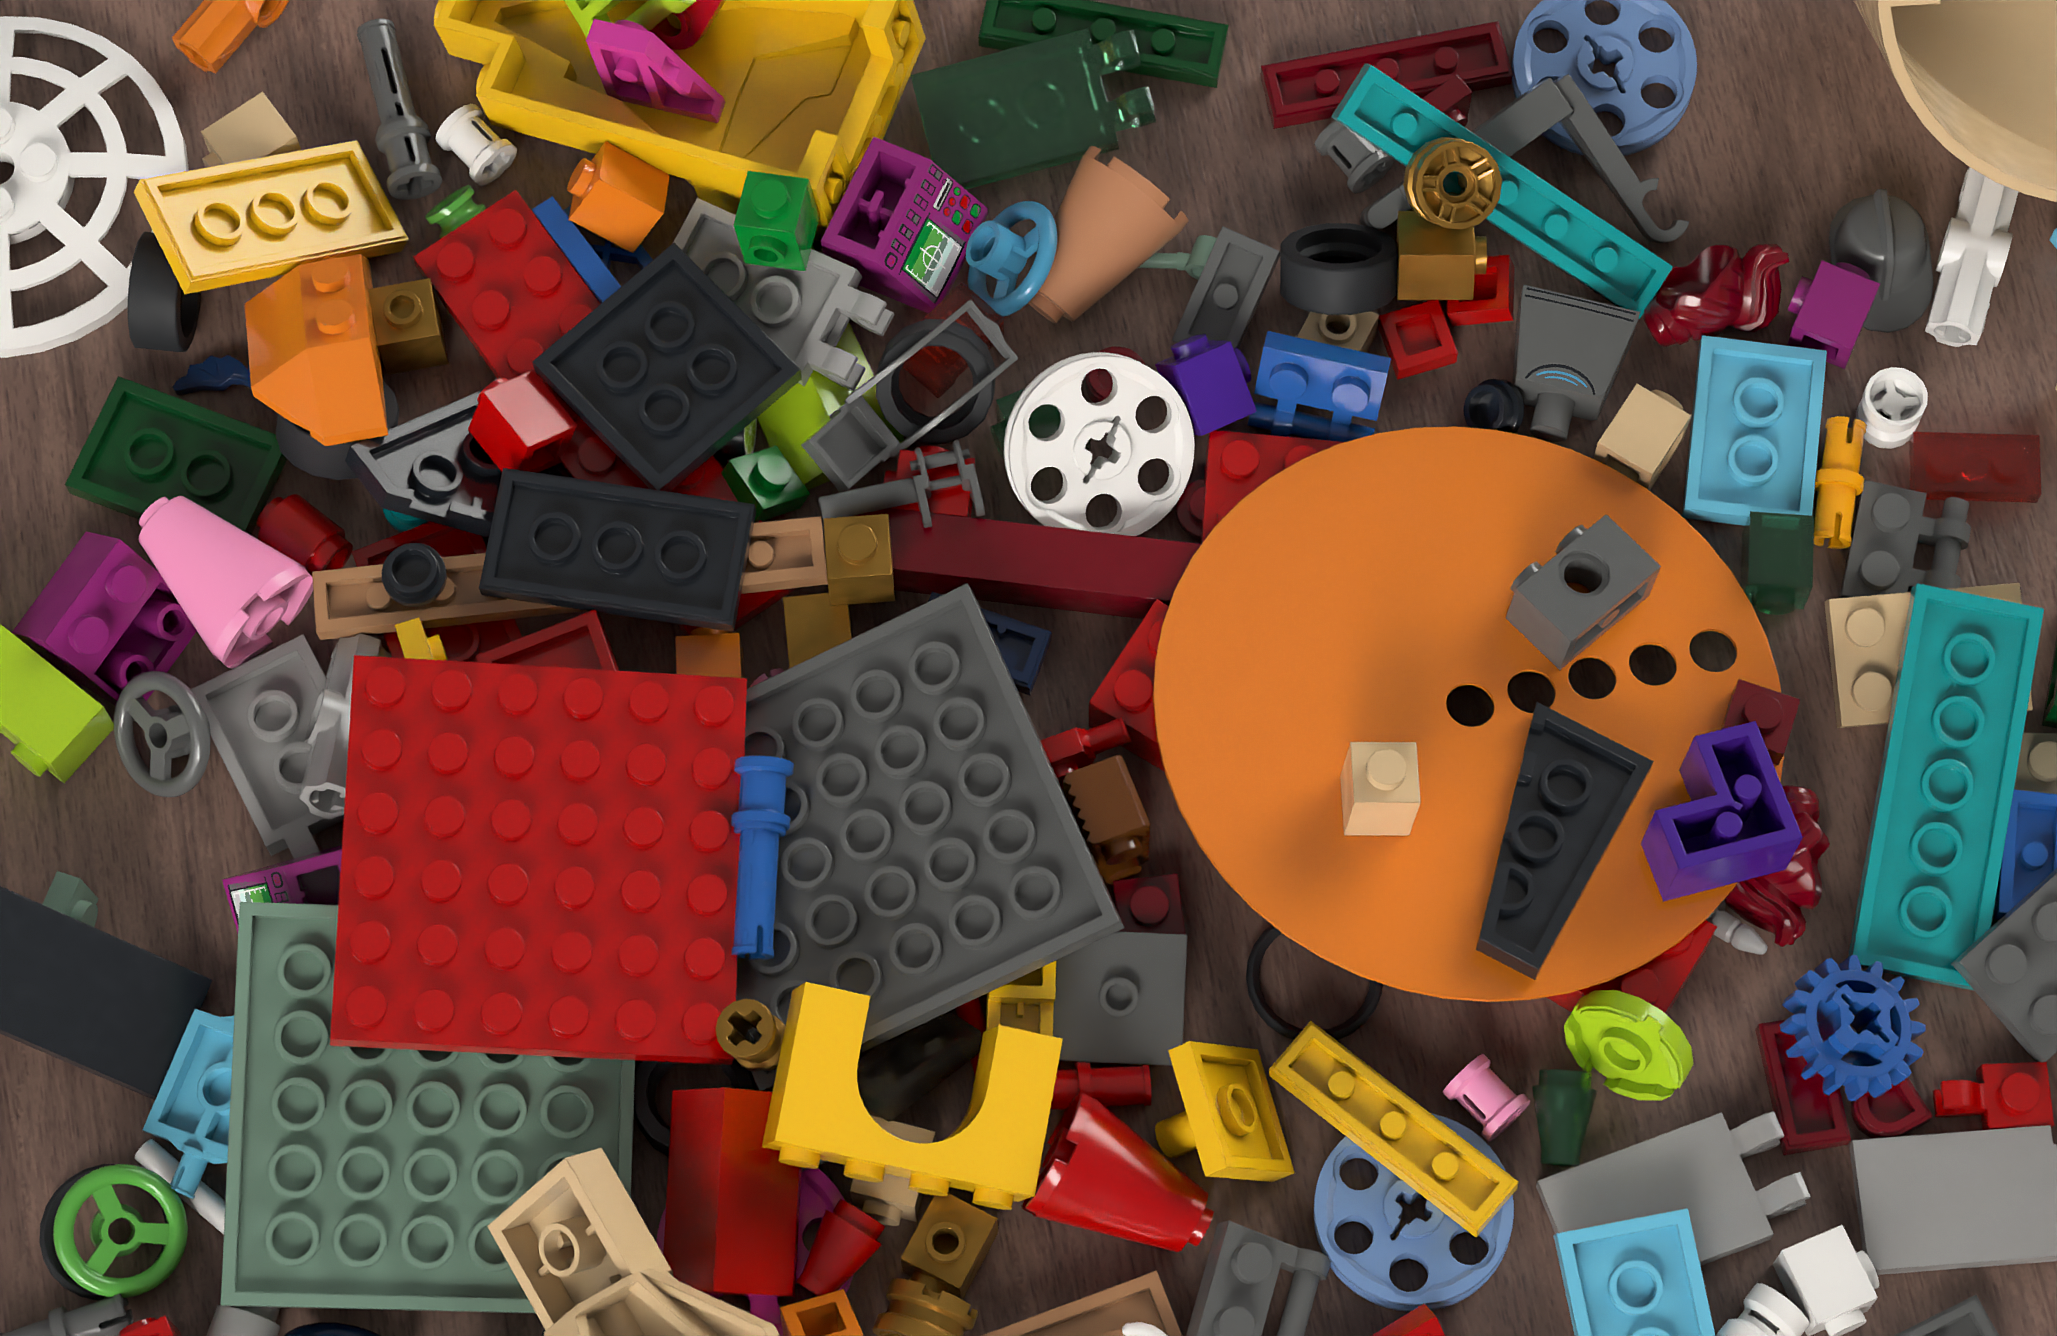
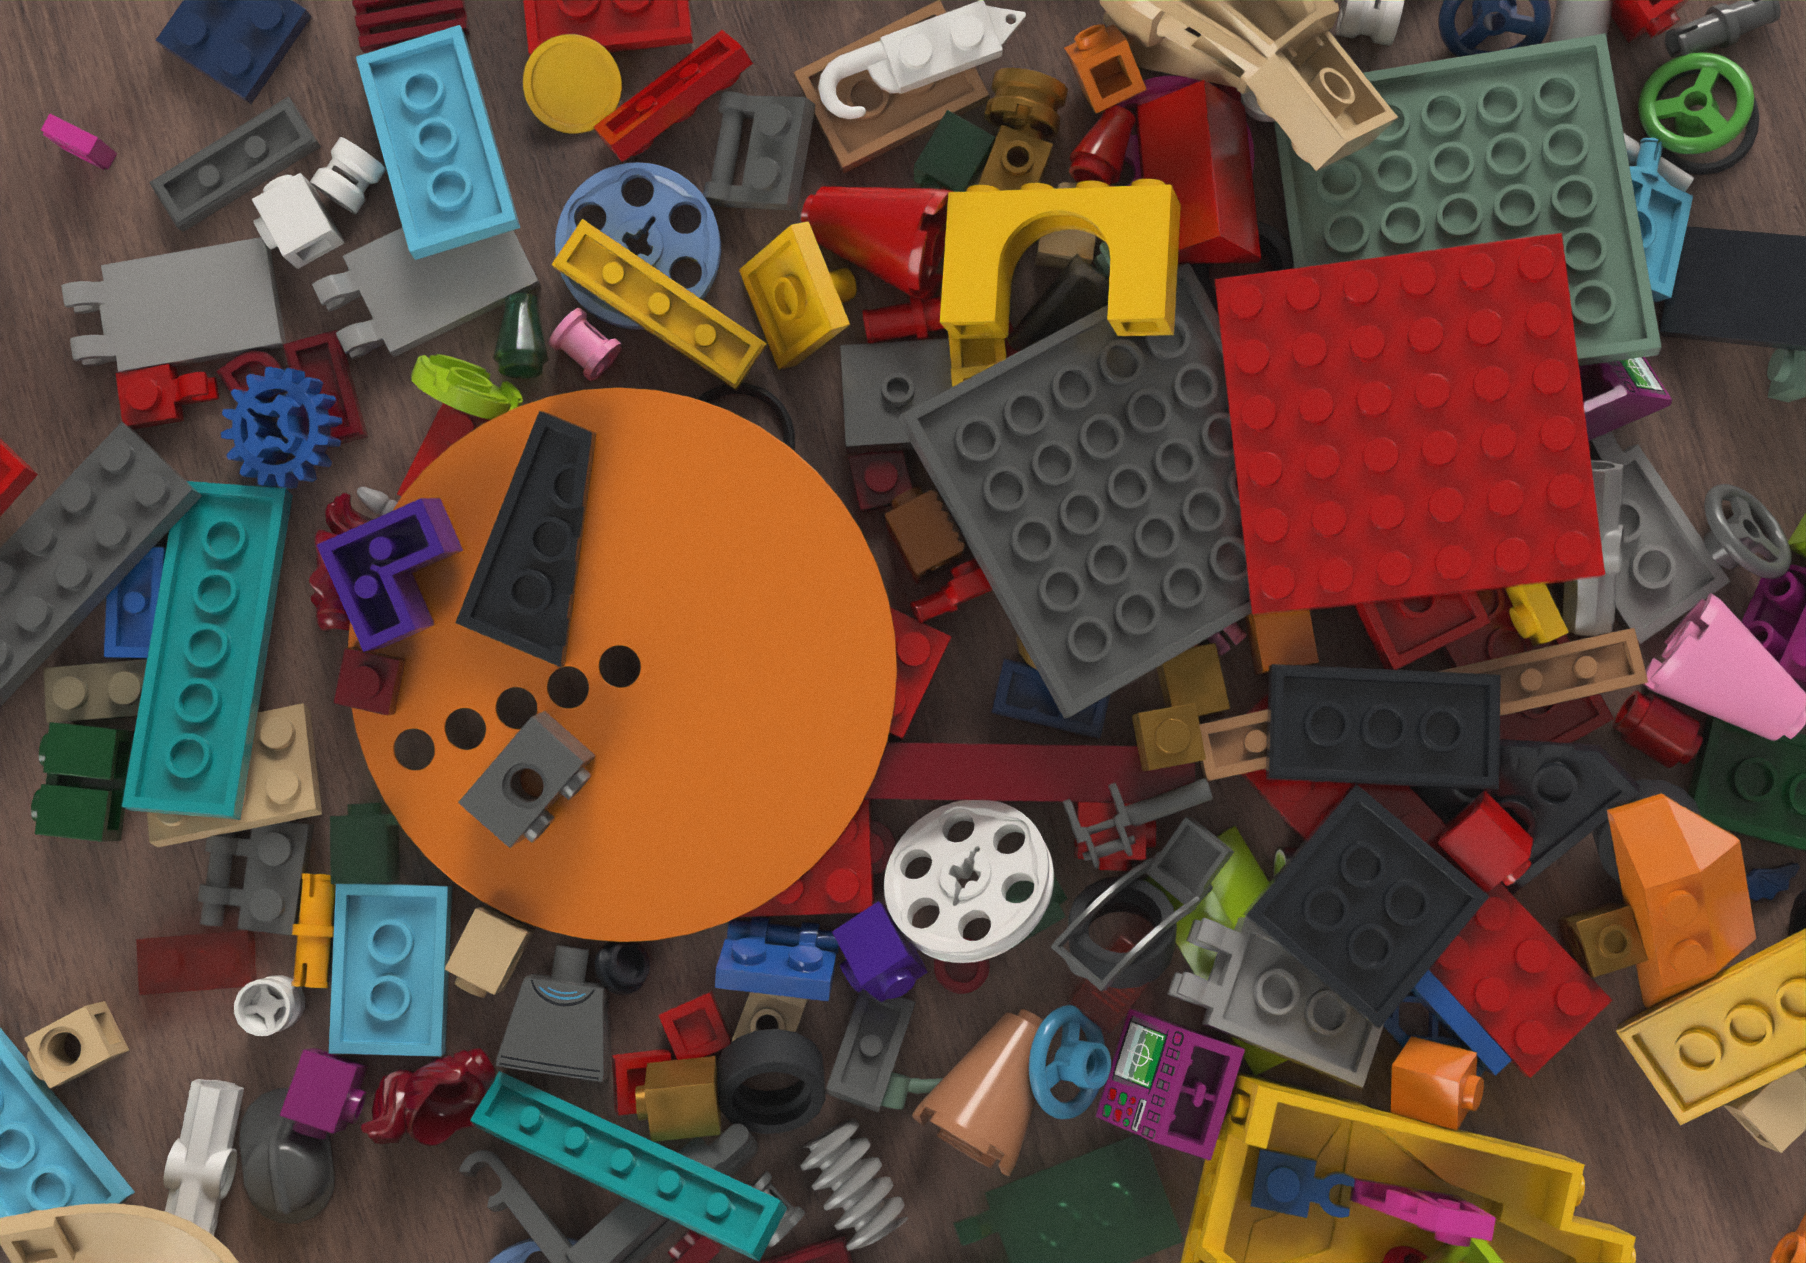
camera: 175 degrees right, 15 degrees up
(401, 132) = (1644, 1131): dark grey pin -> none
(414, 574) = (1559, 682): black plate -> none
(454, 210) = (1578, 1058): bright green bush -> none
(476, 144) = (1571, 1129): white bush -> none
(737, 1021) = (1217, 295): pearl gold bush -> none
(760, 826) = (1221, 480): blue pin -> none
(767, 482) = (1260, 825): green plate -> none
(776, 221) = (1289, 1054): green brick -> none
(783, 121) = (1288, 1185): none -> blue plate
(1022, 1266) = (953, 155): none -> clear green brick
(1257, 166) = (853, 1184): none -> light grey piece
(1380, 788) = (687, 558): tan brick -> none
(1477, 177) = (672, 1130): pearl gold wheel -> none

